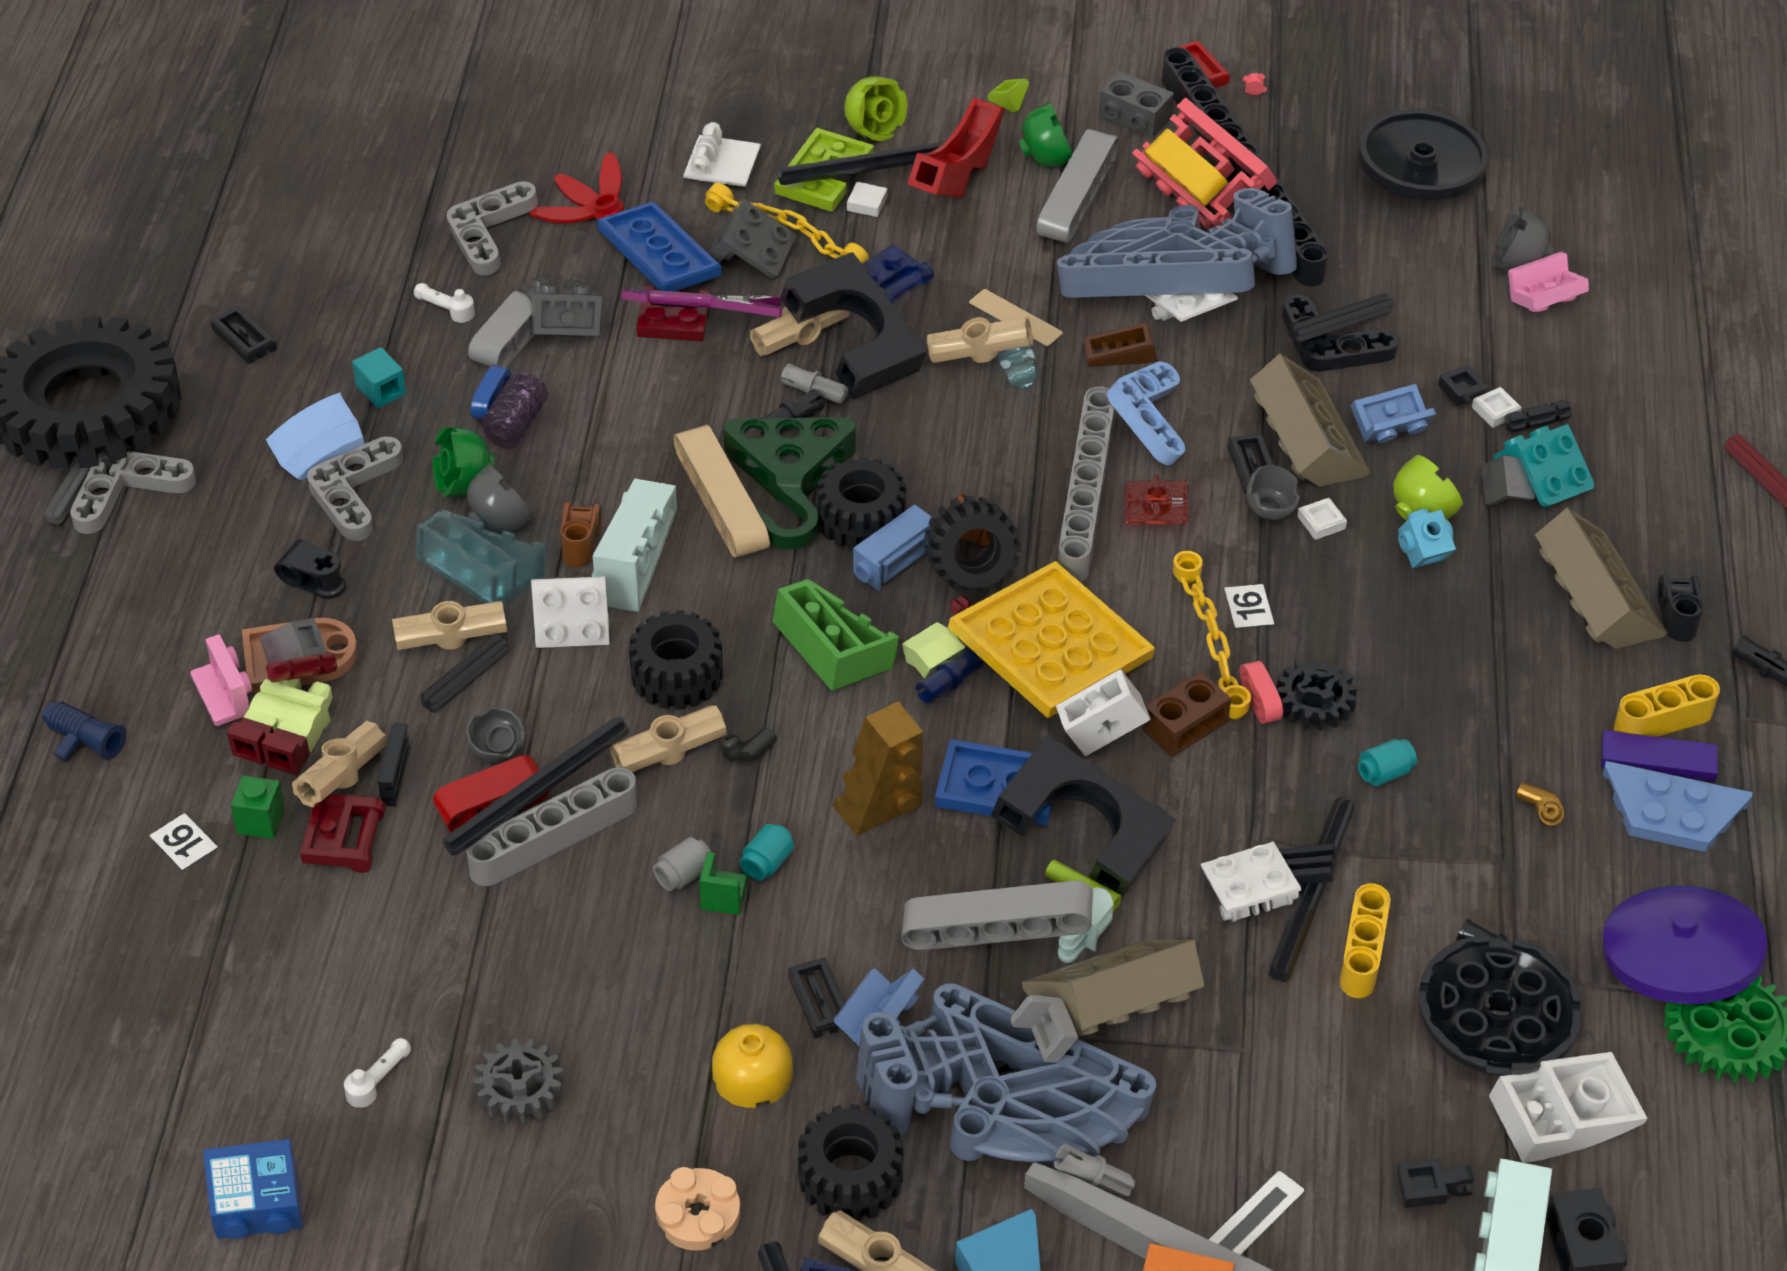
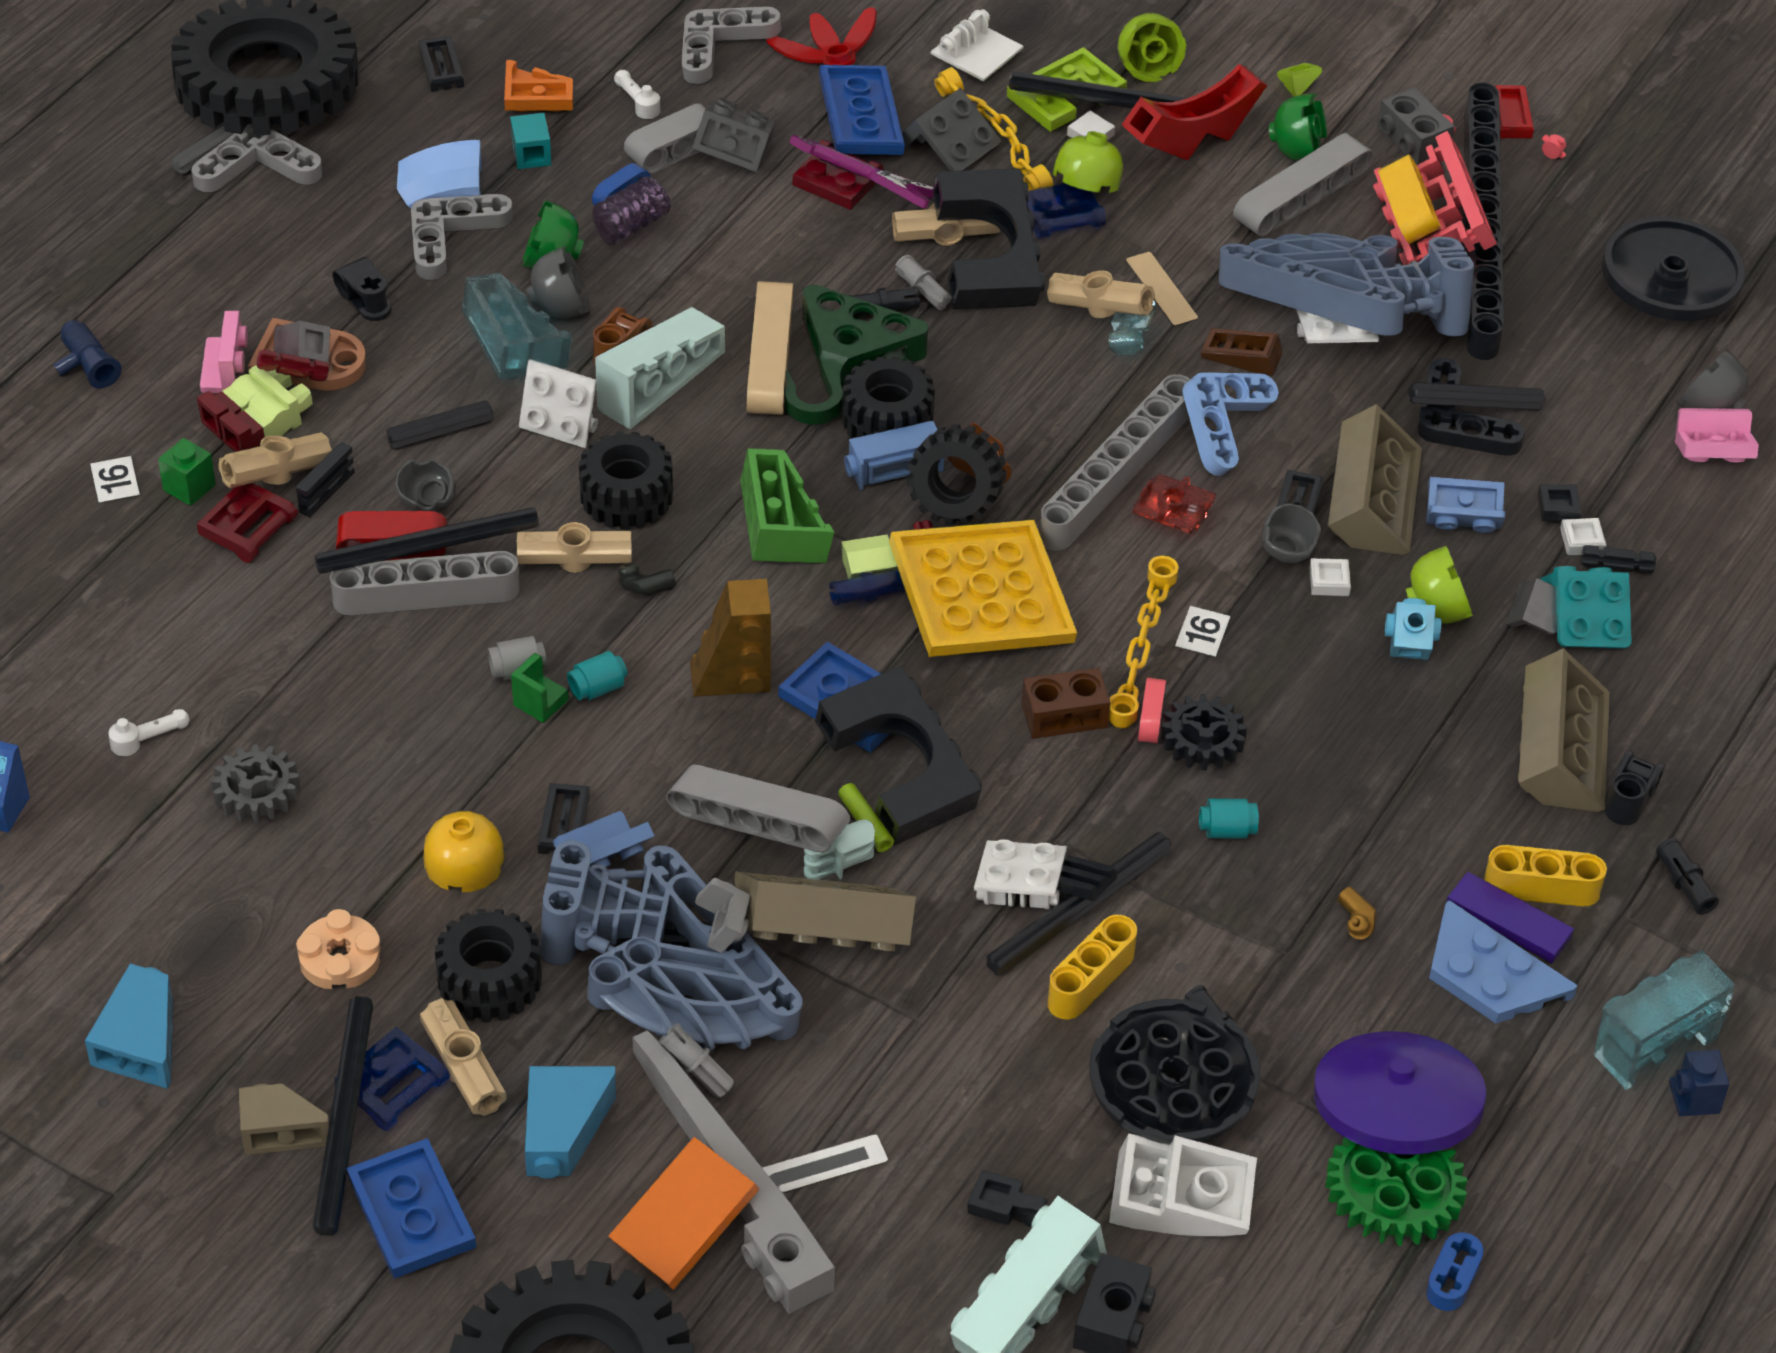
camera: 25 degrees right, 0 degrees up
(351, 328) = (536, 90): none -> orange wing
(449, 625) = (449, 378): tan piece -> none
(894, 227) = (1090, 163): none -> lime cylinder
(1103, 712) = (978, 669): white brick -> none

